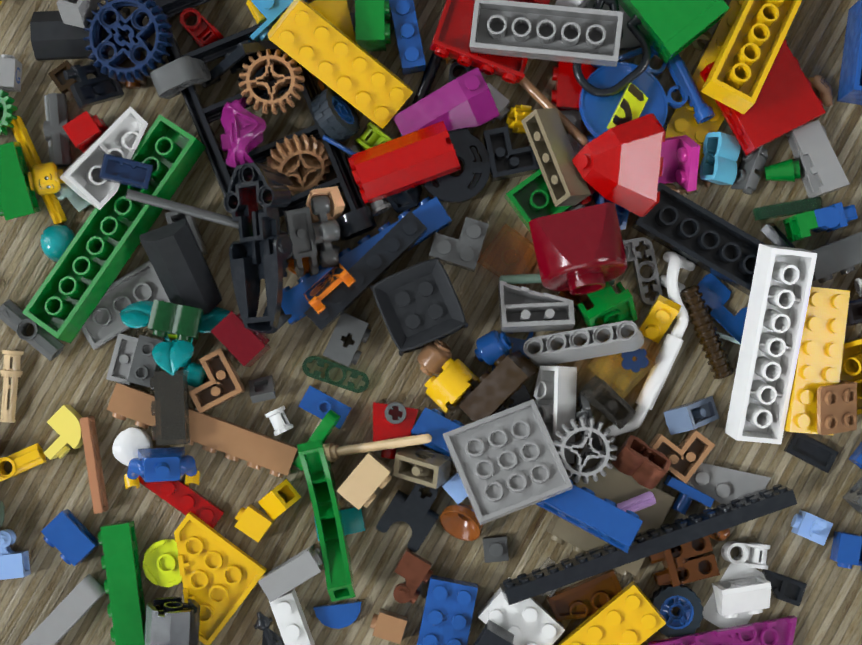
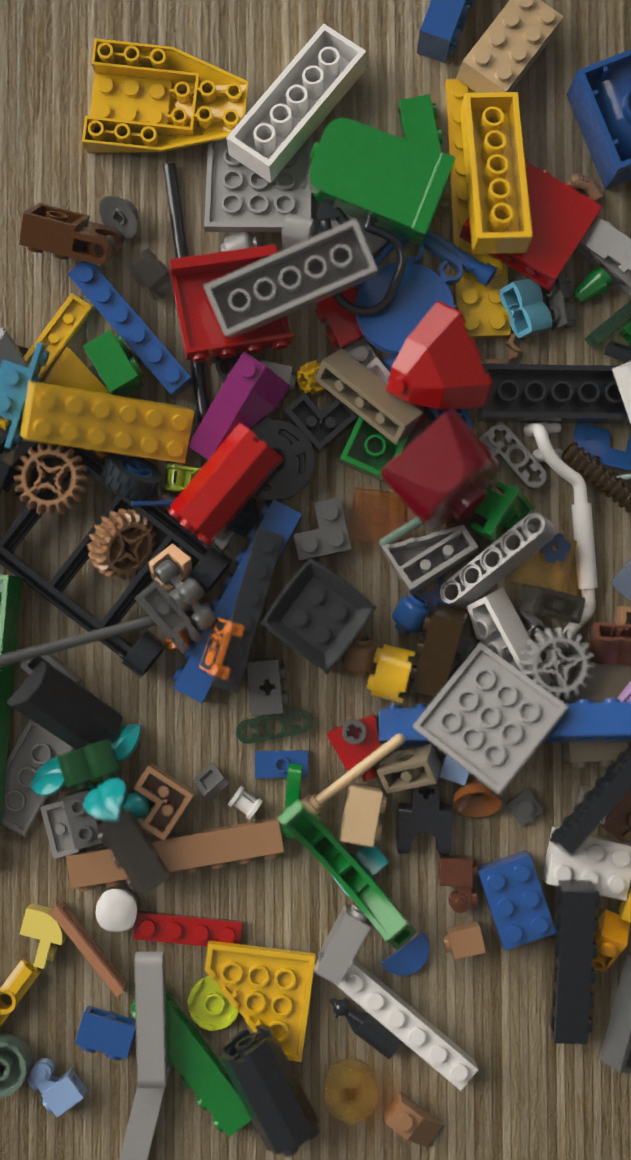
camera: 30 degrees left, 0 degrees up
(110, 546) = (151, 1019): none -> light grey beam
(161, 465) = (156, 913): blue torso -> none
(242, 131) = (51, 546): magenta piece -> none
(242, 343) = (163, 744): dark red brick -> none
(253, 522) = (276, 915): yellow brick -> none
(261, 246) = (133, 646): black piece -> none
(279, 499) = (289, 879): yellow brick -> none
(545, 103) = (328, 349): medium nougat piece -> none
(629, 106) = (411, 307): slope -> none
(659, 318) = (555, 495): yellow plate -> none
(680, 162) = (491, 332): dark pink bracket -> none

